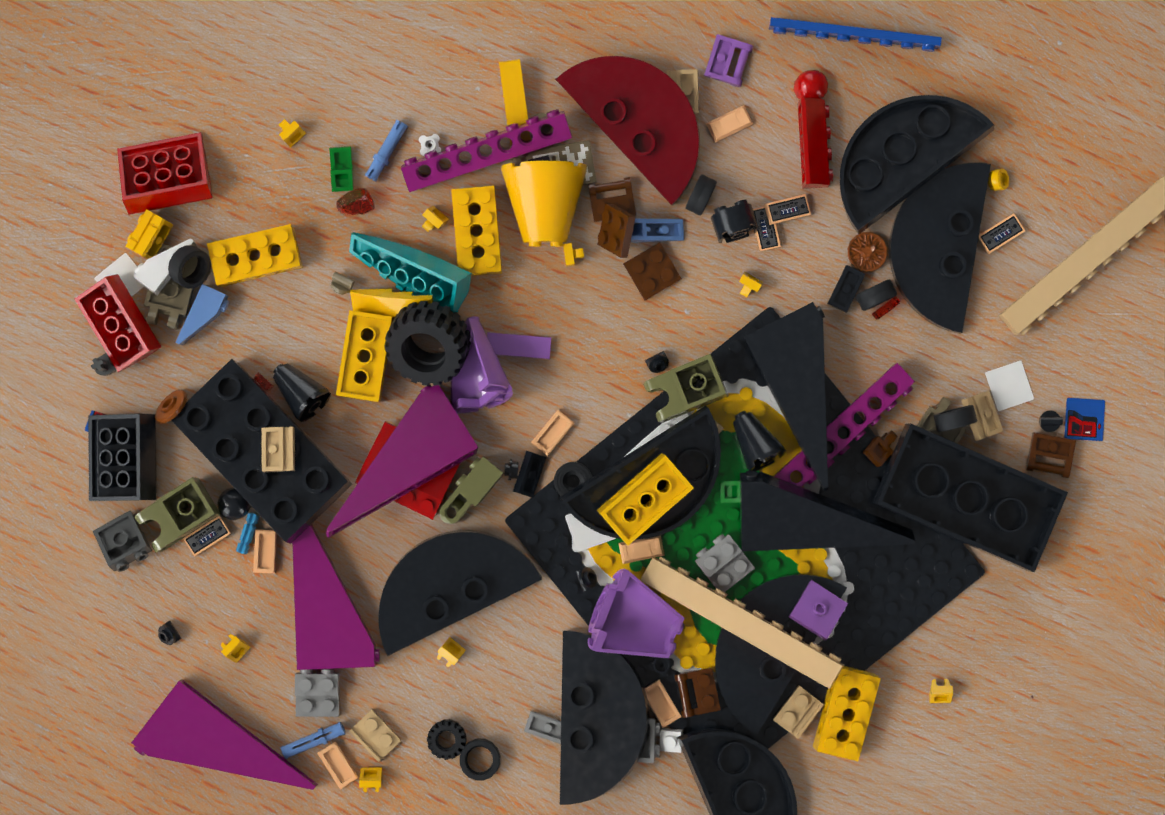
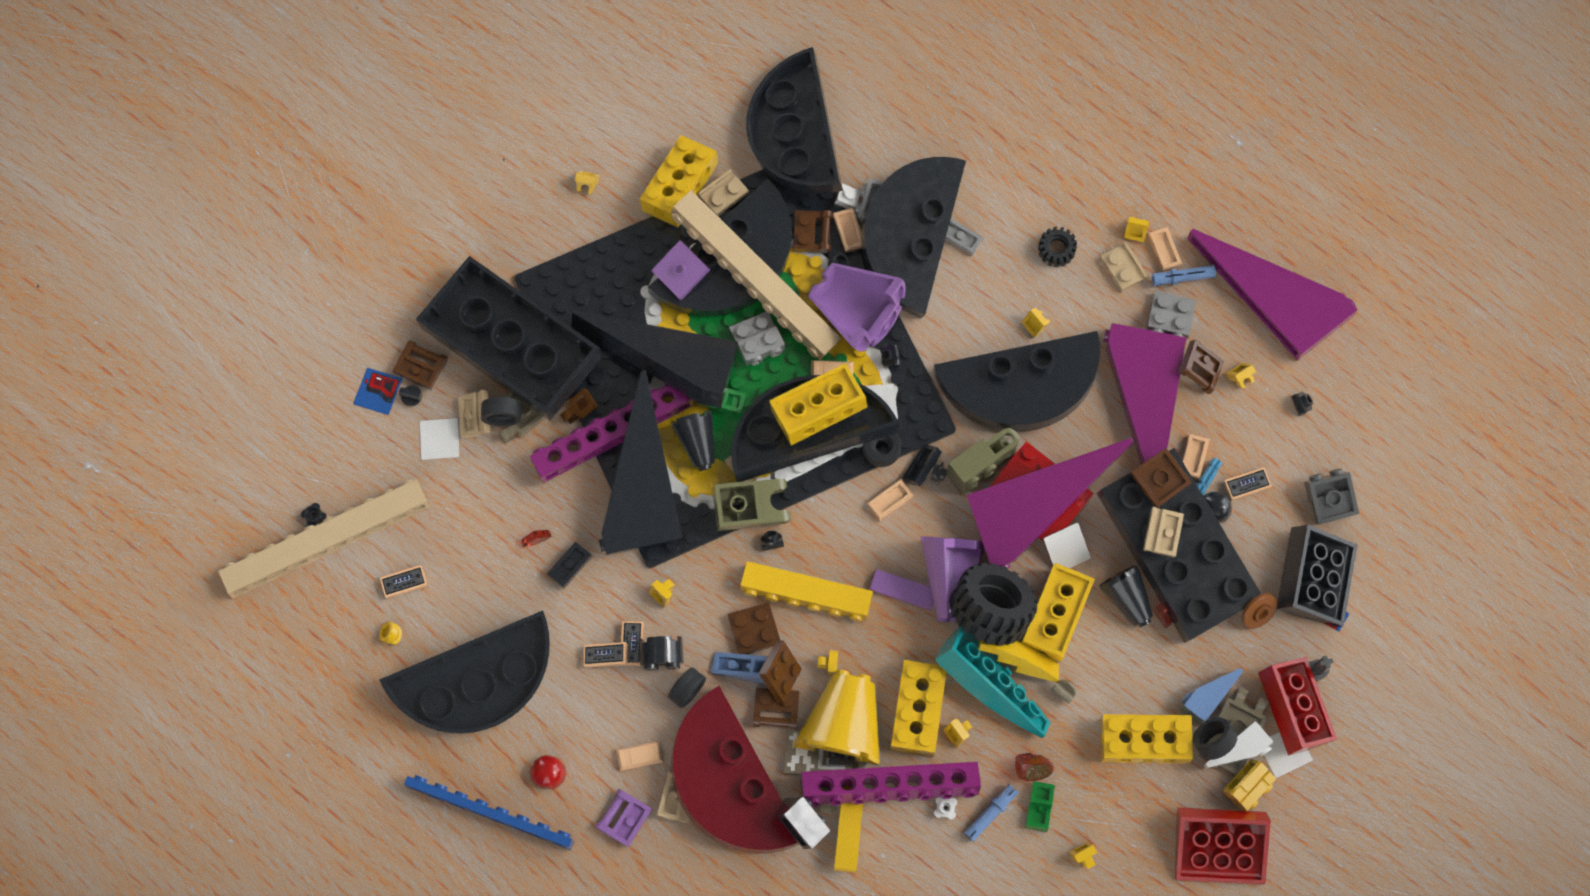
camera: 170 degrees left, 15 degrees down
(172, 513) = (1277, 508): olive brick -> none
(273, 650) = (1205, 362): none -> reddish brown plate
(291, 501) = (1161, 478): none -> reddish brown plate
(369, 424) = (1067, 546): none -> white sticker
(479, 776) = (1033, 207): black tyre -> none
(560, 91) = (802, 821): none -> slope
(611, 319) = (806, 591): none -> yellow brick
(813, 143) = (561, 711): red slope -> none
(867, 252) = (538, 595): dark orange wheel -> none
(876, 295) = (542, 549): black tyre -> none
(937, 243) = (468, 587): black plate -> none
(1108, 283) = (313, 509): none -> black plate

